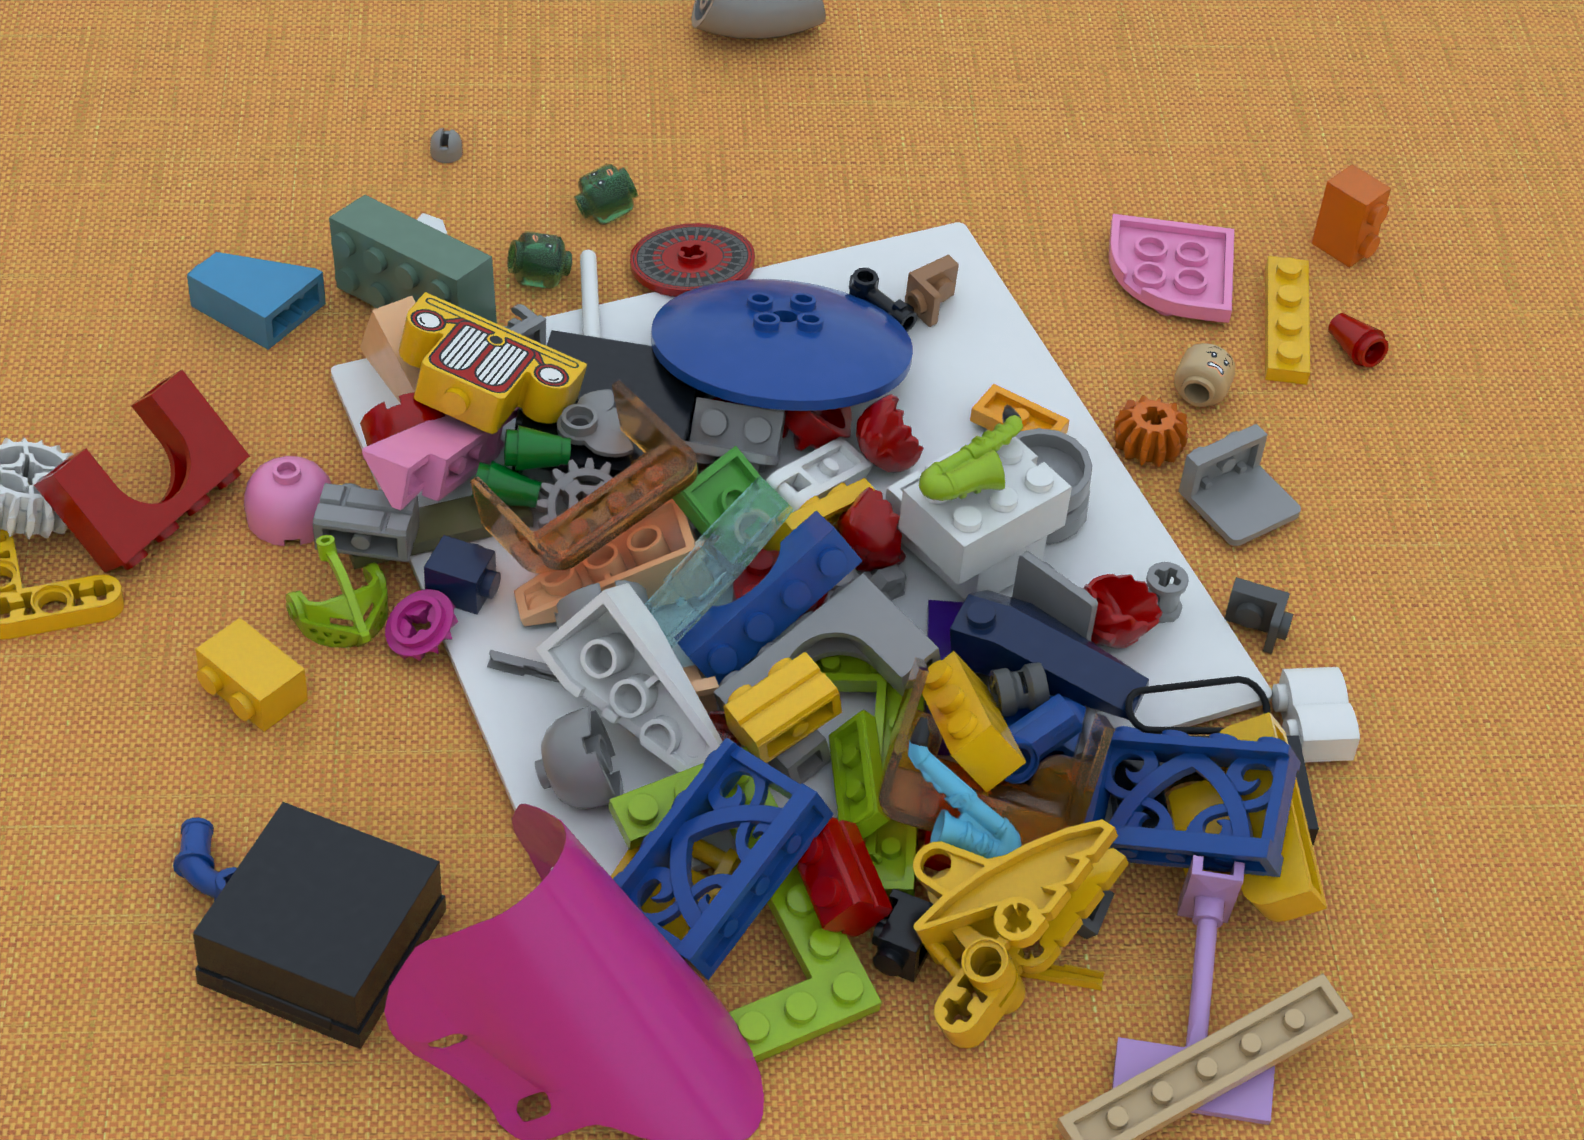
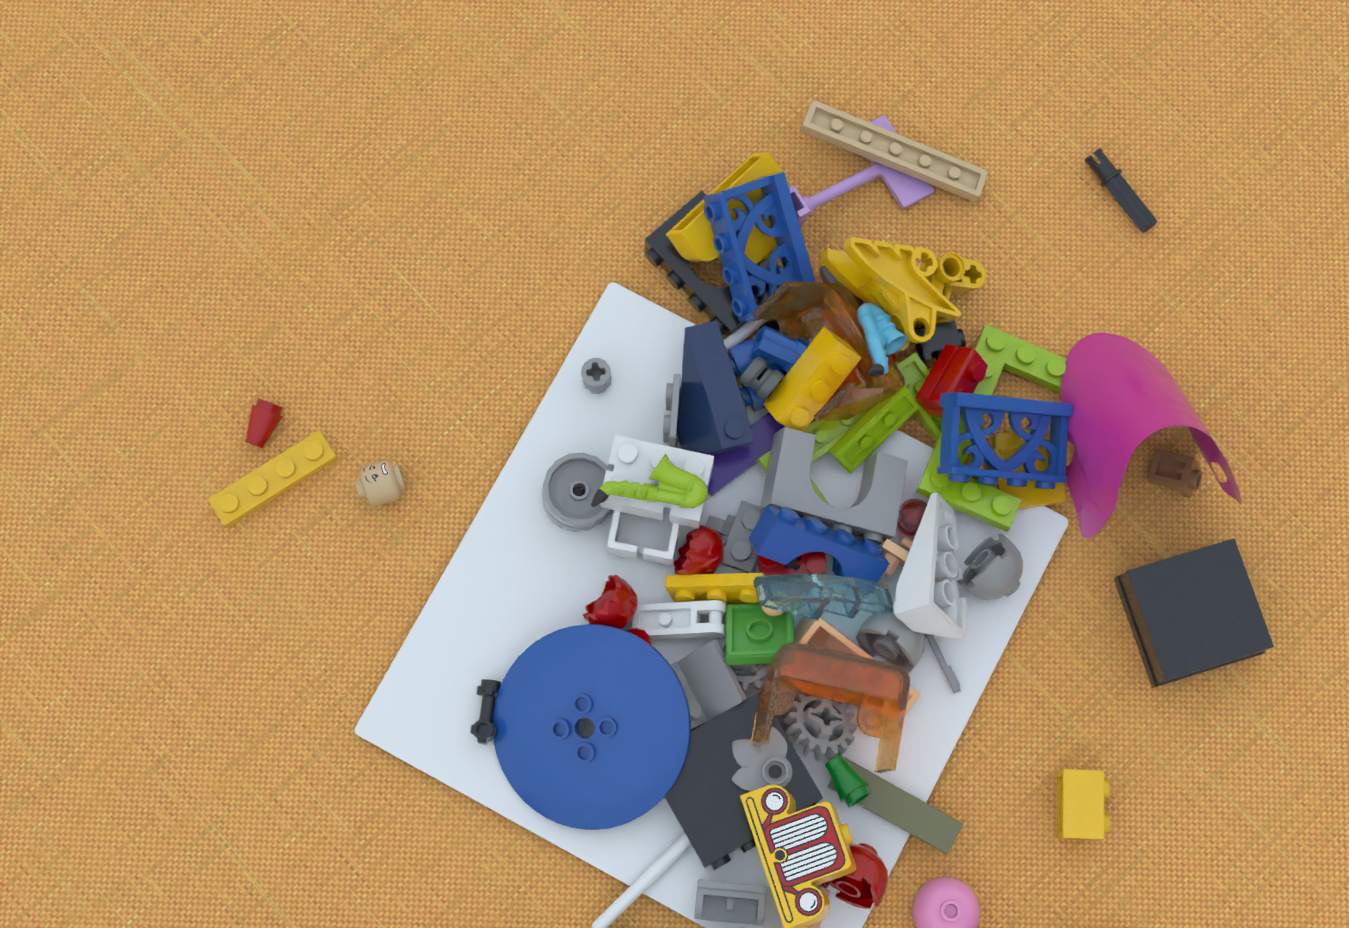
camera: 125 degrees left, 30 degrees up
(195, 858) = (1210, 714): blue piece -> none
(314, 617) = (998, 786): lime helmet -> none
(366, 522) = (944, 830): light grey brick -> none
(420, 608) = (977, 758): dark pink gear -> none
(431, 458) = (892, 827): bright pink wedge -> none
(463, 573) = (922, 751): dark blue brick -> none
(535, 449) = (819, 778): green cone -> none
(691, 257) = (521, 888): piece -> none
(782, 707) = (889, 479): yellow brick -> none
(930, 287) = (445, 689): medium nougat bracket -> none
(990, 408) = (521, 553): light orange plate -> none
(1123, 610) = (638, 385): red hair -> none
(1150, 431) = (456, 492): orange gear -> none
(1174, 266) = (283, 574): bright pink plate -> none
(1188, 685) = (666, 312): black piece -> none
(1234, 490) = (466, 398): light grey bracket -> none
(1260, 609) = (555, 329): dark grey bracket -> none
(1318, 711) = (608, 250): white brick -> none
(1351, 216) = (154, 488): orange piece -> none

